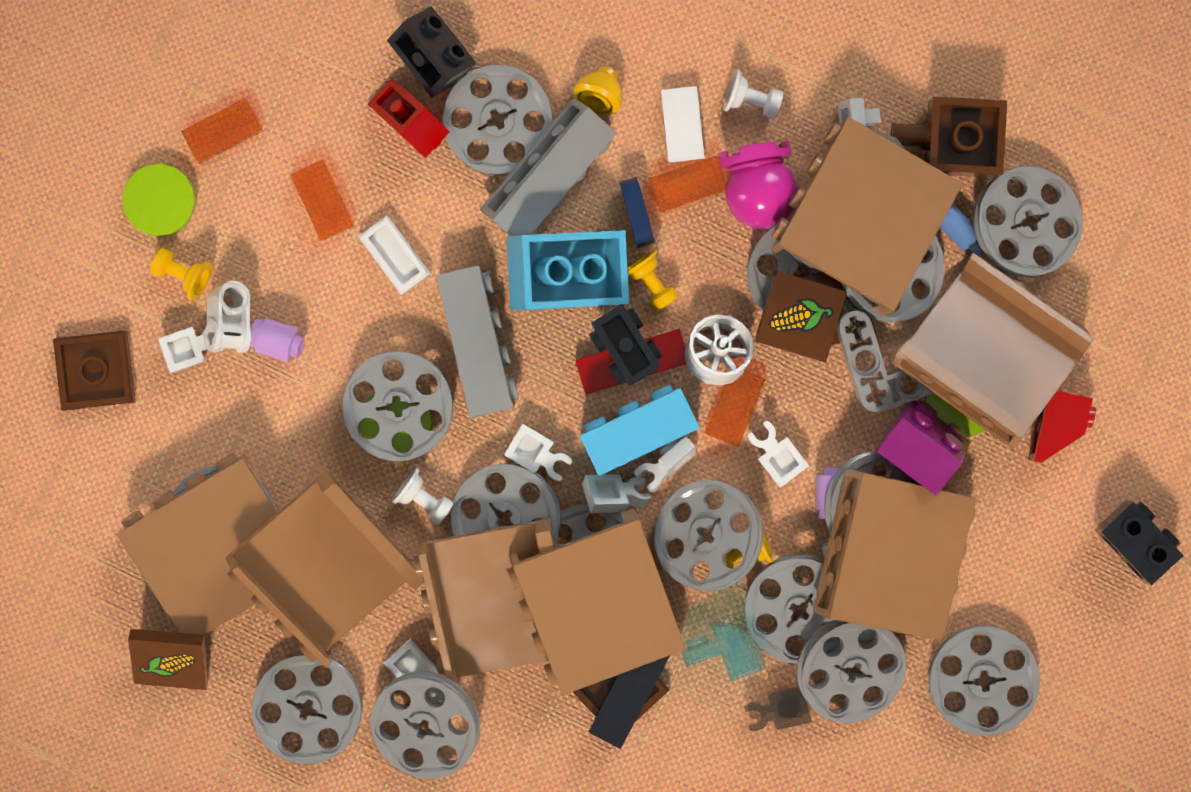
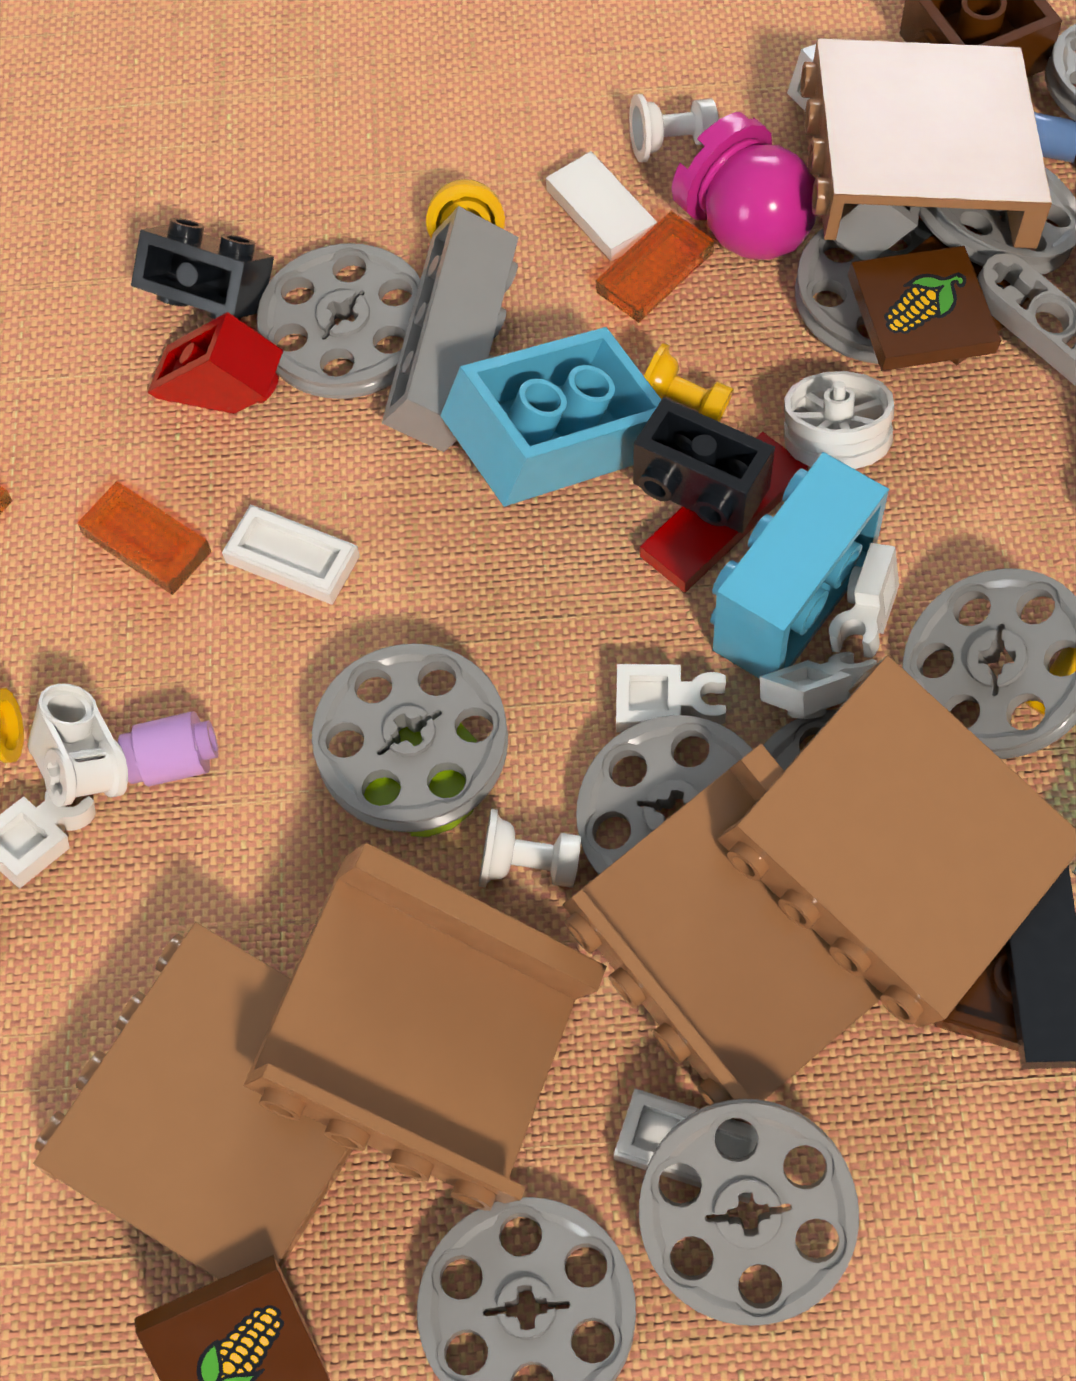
camera: 25 degrees left, 25 degrees down
(476, 342) = (480, 594): light grey brick -> none
(637, 212) = (592, 307): dark blue beam -> none
(735, 408) = (916, 505): clear orange tile -> none
(780, 459) = (1024, 519): white plate -> none

